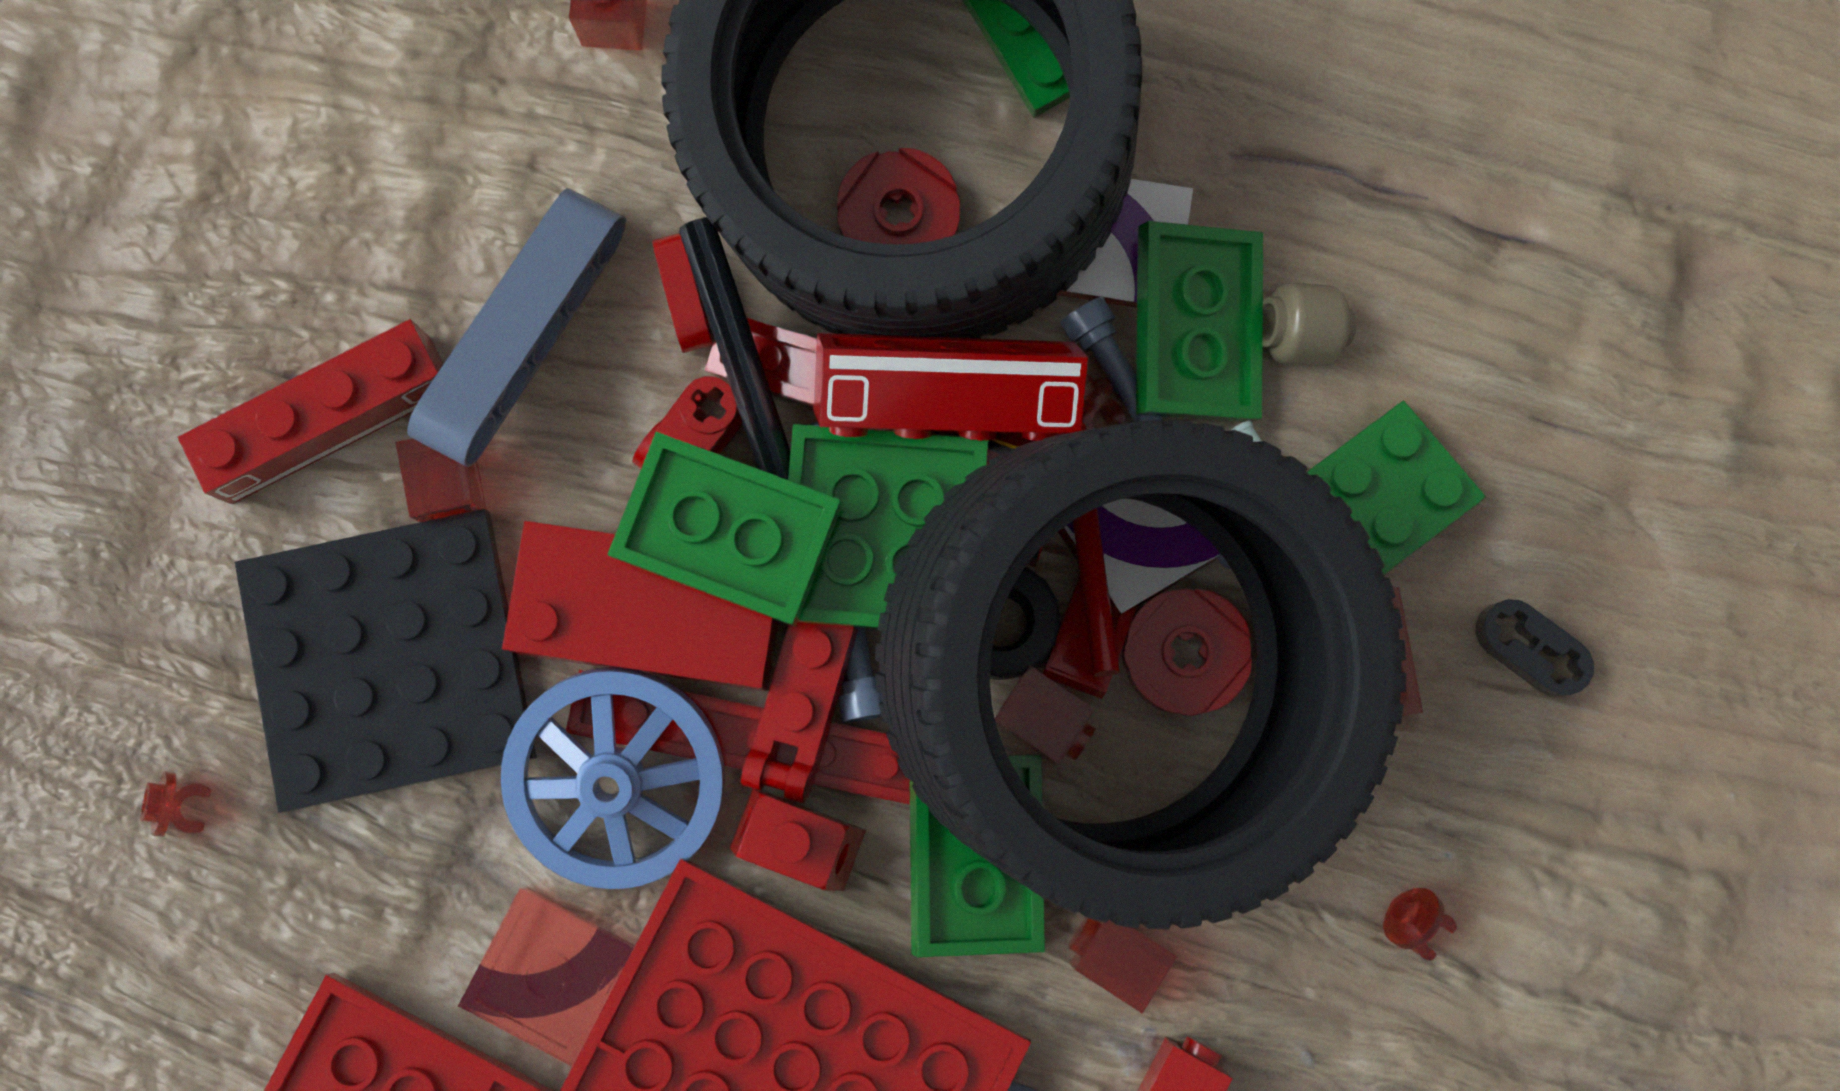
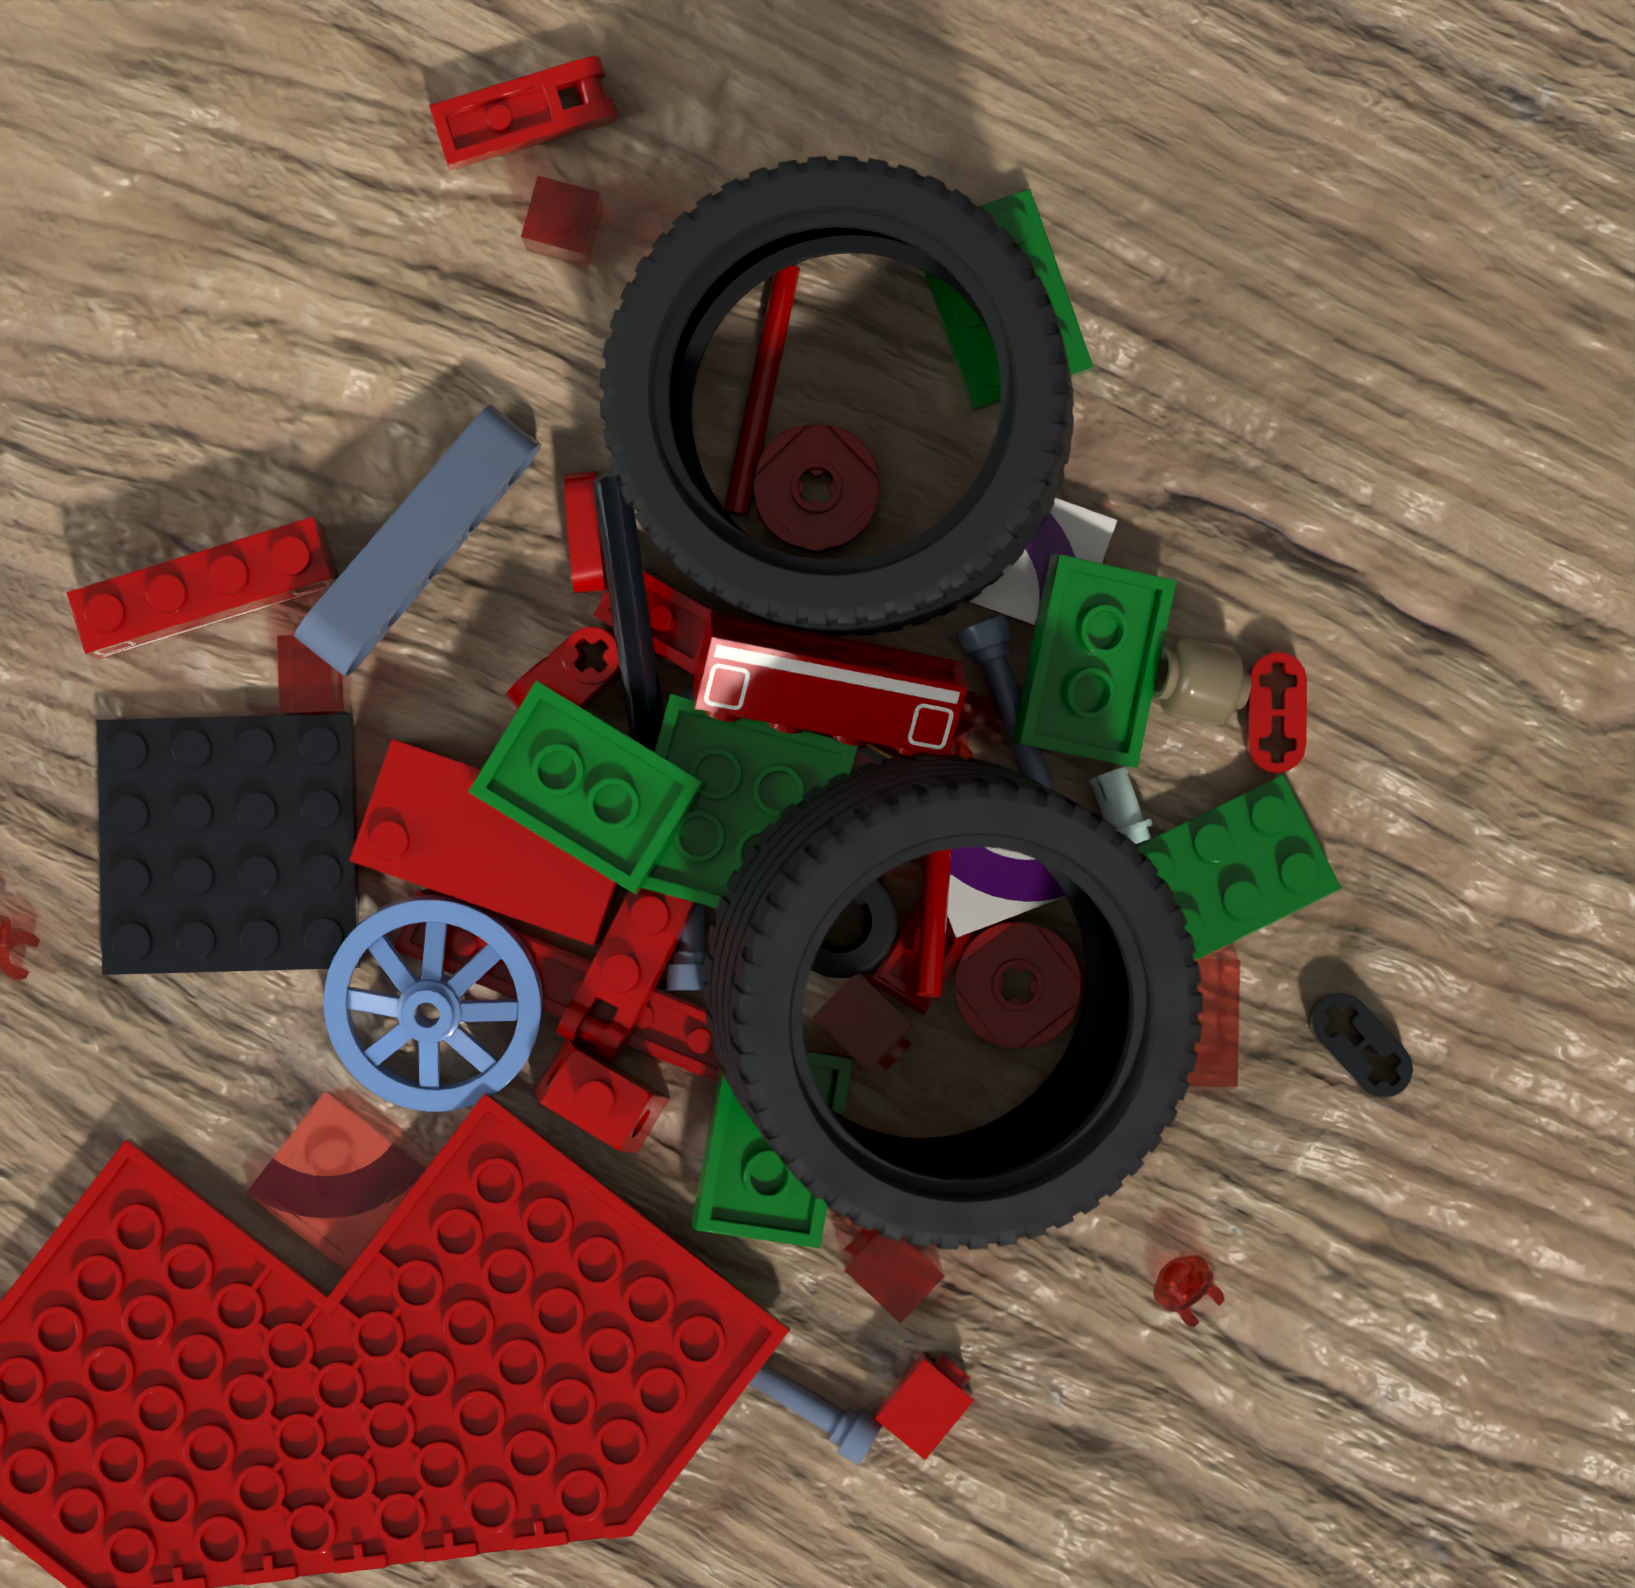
camera: 15 degrees right, 5 degrees up
(829, 119) = (761, 390): none -> red bar
(1397, 341) = (1292, 713): none -> red beam

